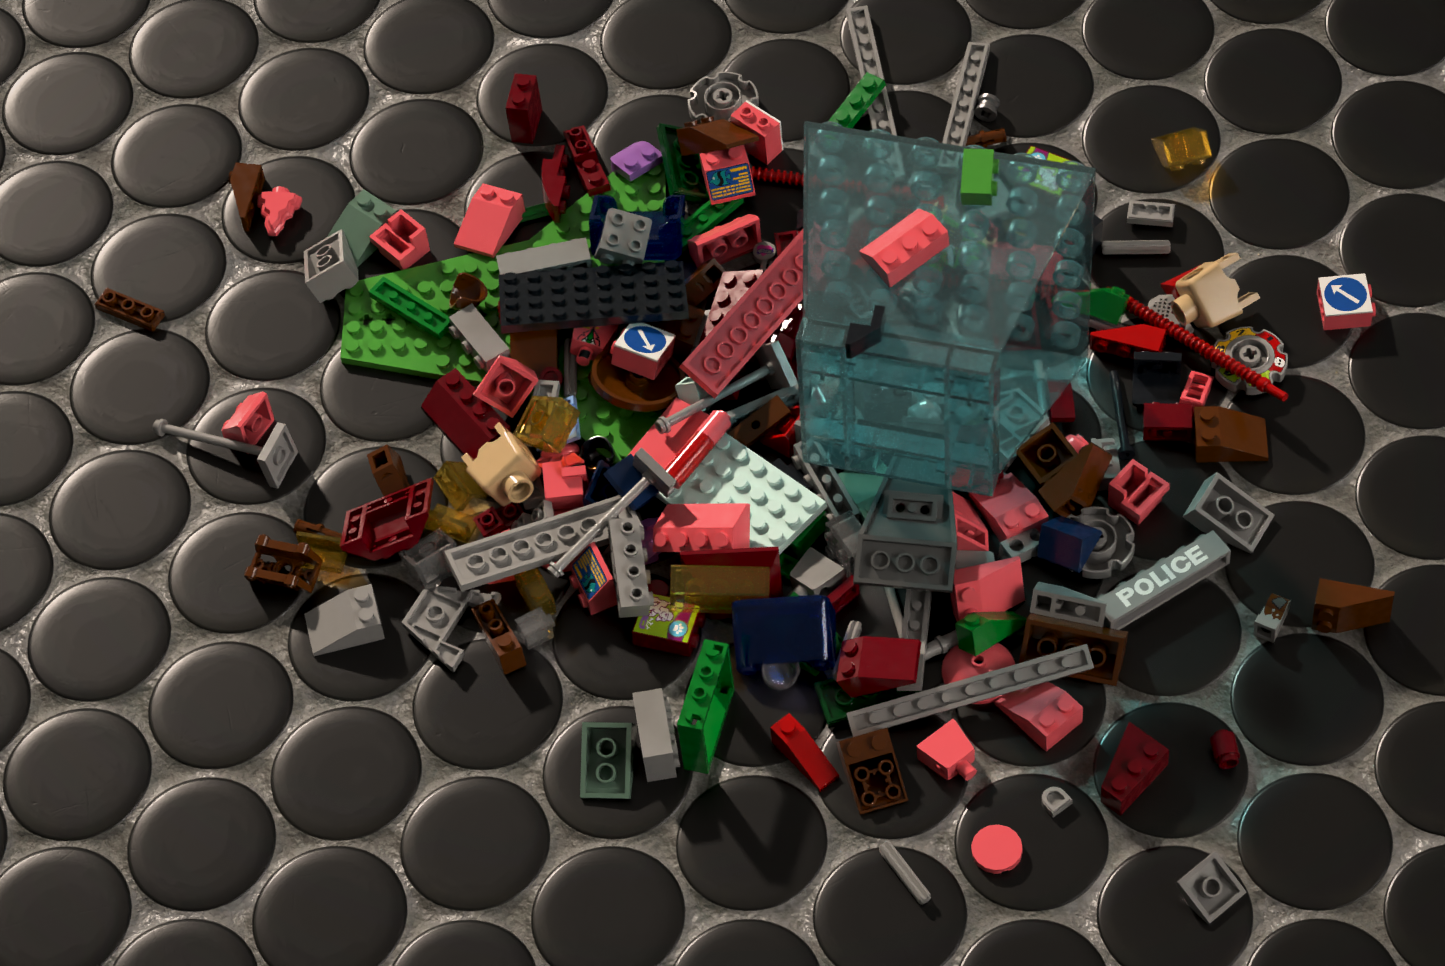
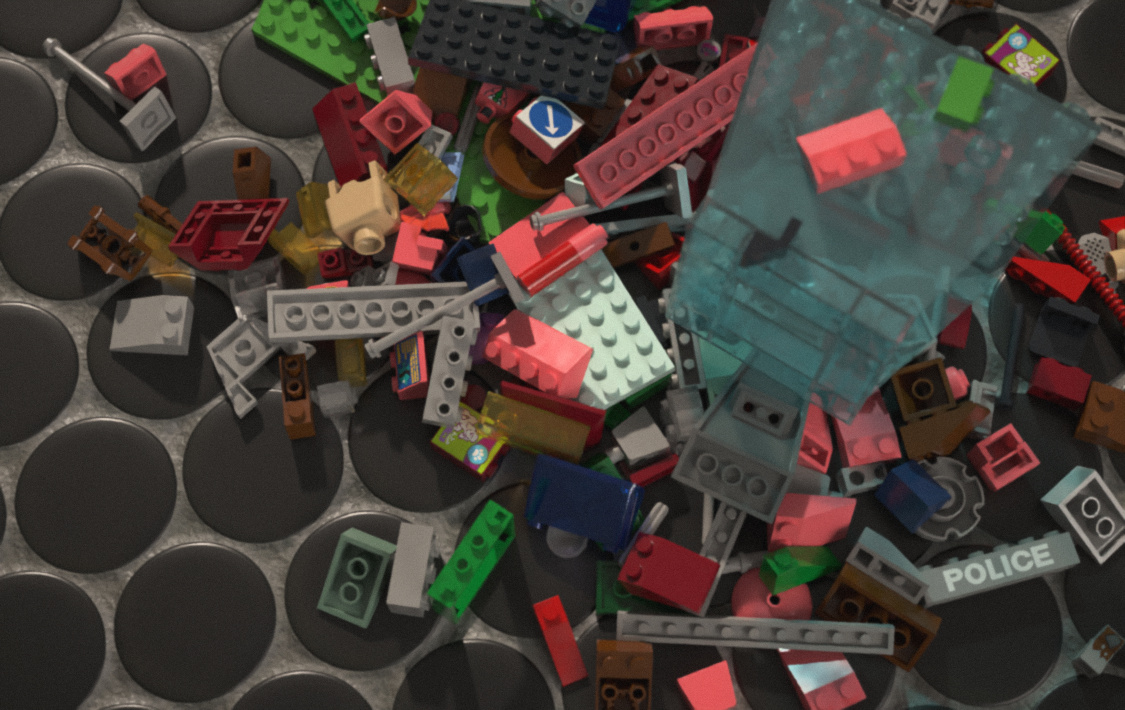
camera: 10 degrees right, 15 degrees up
(1195, 393) = (1089, 367): coral slope -> none

